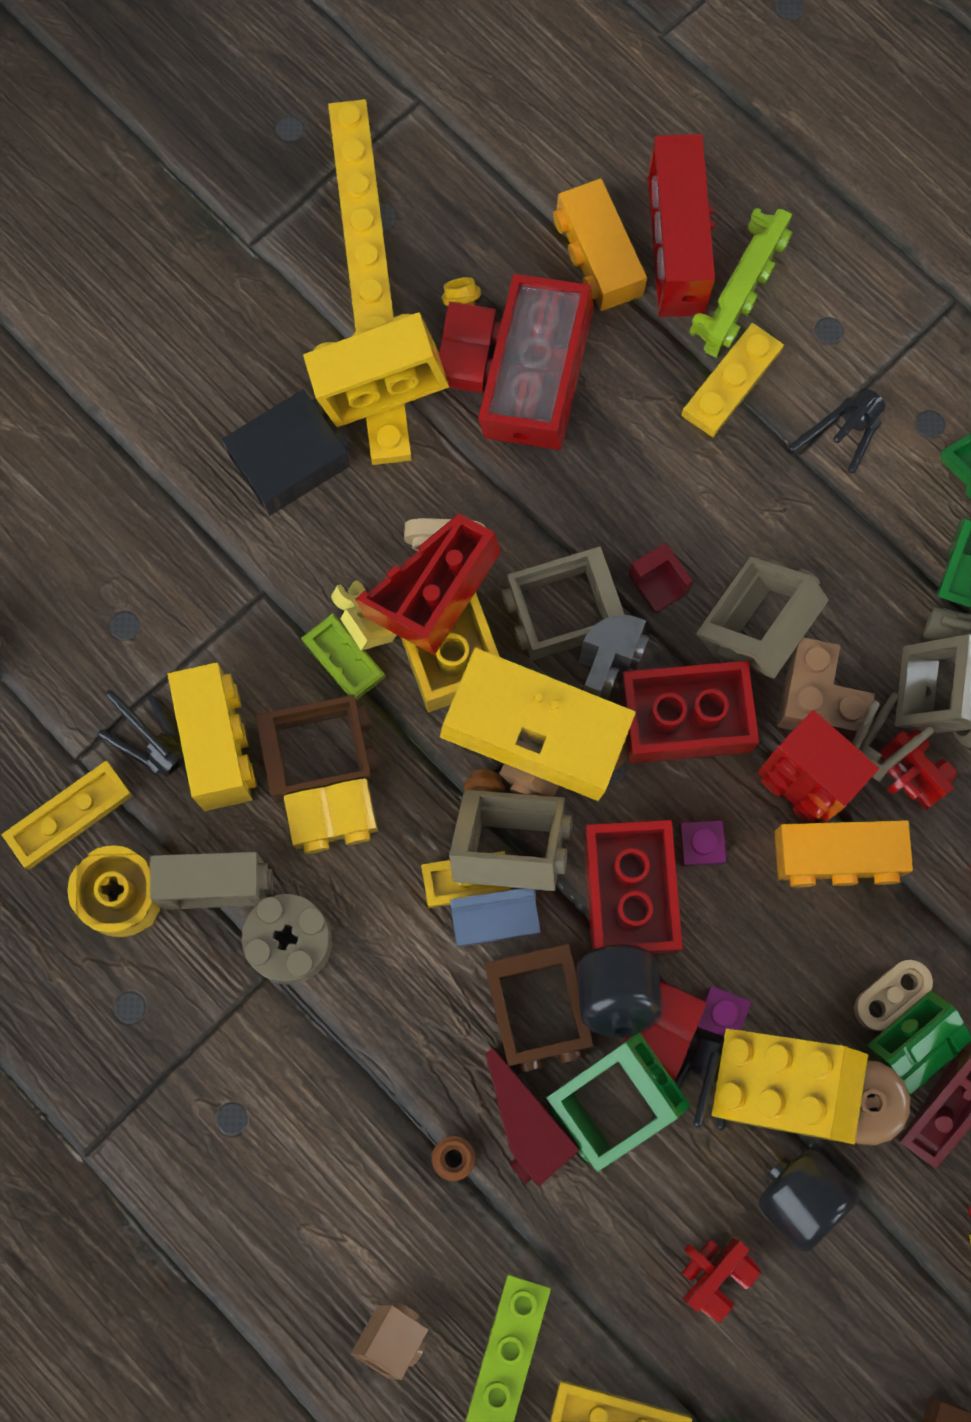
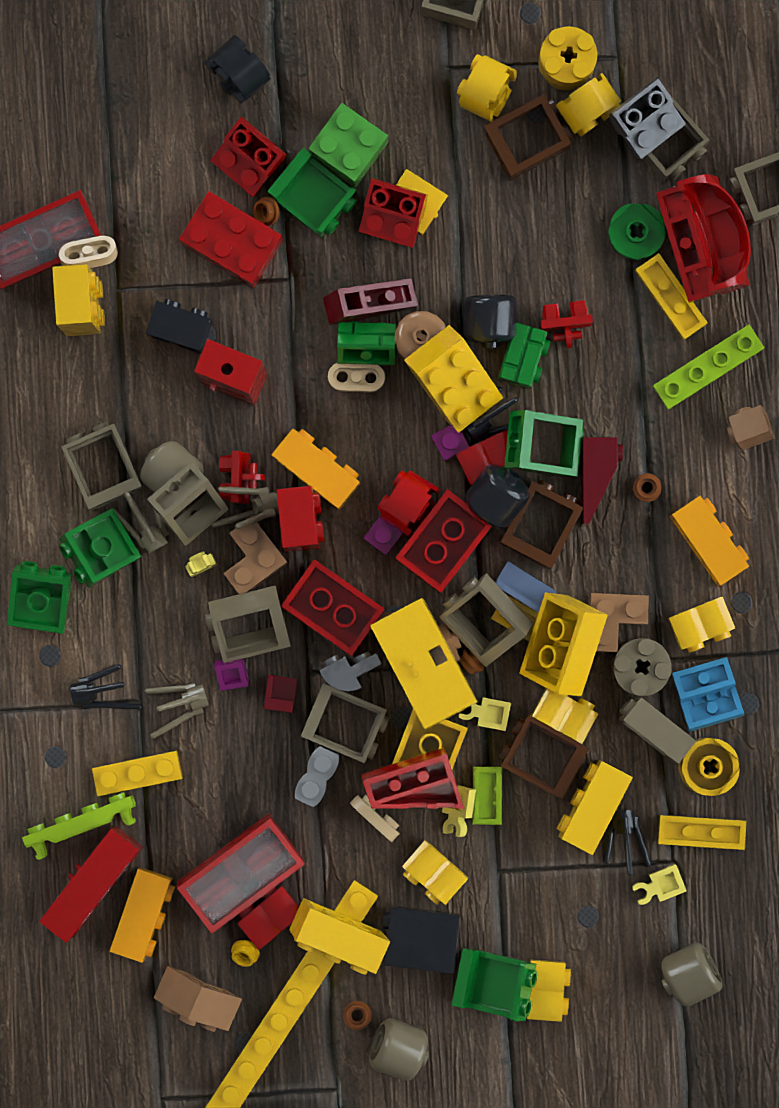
camera: 135 degrees left, 10 degrees up
(65, 724) = (664, 884): none -> light yellow plate
(105, 507) = (549, 991): none -> yellow brick
(167, 466) = (495, 984): none -> green panel
(185, 977) = (707, 694): none -> dark azure slope
(214, 322) = (398, 1049): none -> dark tan head
(257, 1050) = (701, 624): none -> yellow brick
(285, 318) = (357, 1024): none -> dark orange plate
(327, 1159) = (710, 540): none -> light orange brick
(331, 530) = (434, 872): none -> yellow brick
(377, 968) = (620, 610): none -> medium nougat brick
(398, 885) = (563, 644): none -> yellow brick
(414, 748) = (491, 714): none -> light yellow plate
(467, 201) = (196, 1000): none -> medium nougat brick
(541, 518) = (319, 769): none -> light grey brick
(713, 899) = (408, 502): none -> red brick
(729, 555) = (231, 674): none -> magenta plate
(729, 1188) = (523, 356): none -> green brick
(745, 499) = (192, 699): none -> dark tan plant
(870, 640) = (200, 563): none -> light yellow plate

